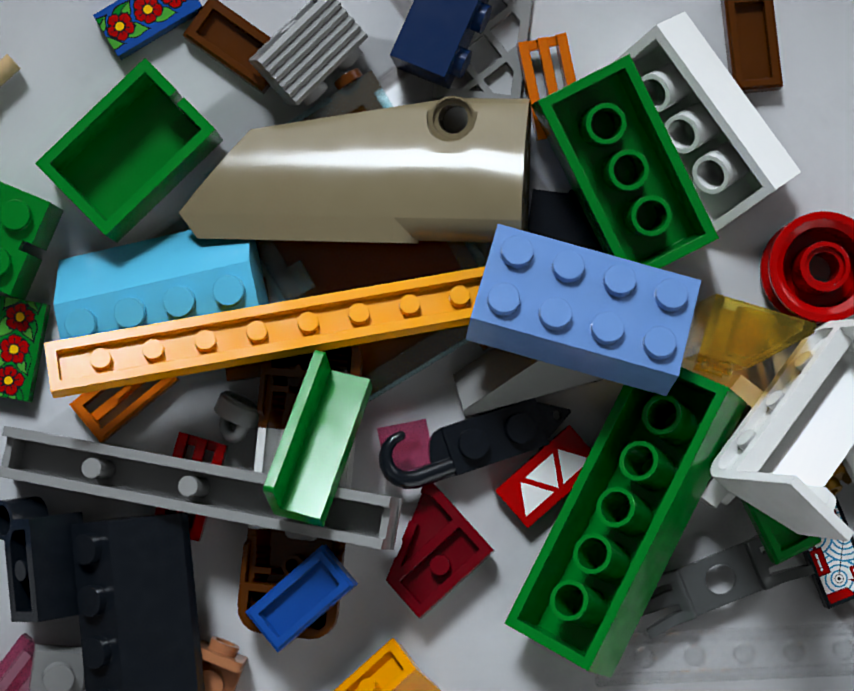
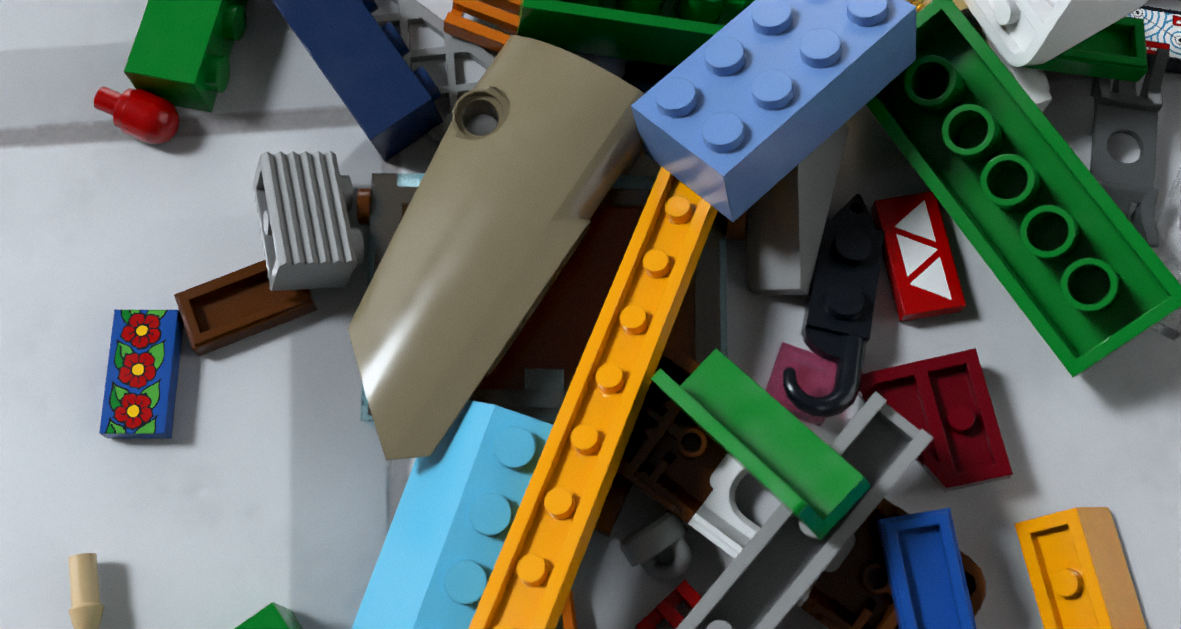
camera: 60 degrees left, 15 degrees down
(129, 151) = (277, 478): green piece -> none

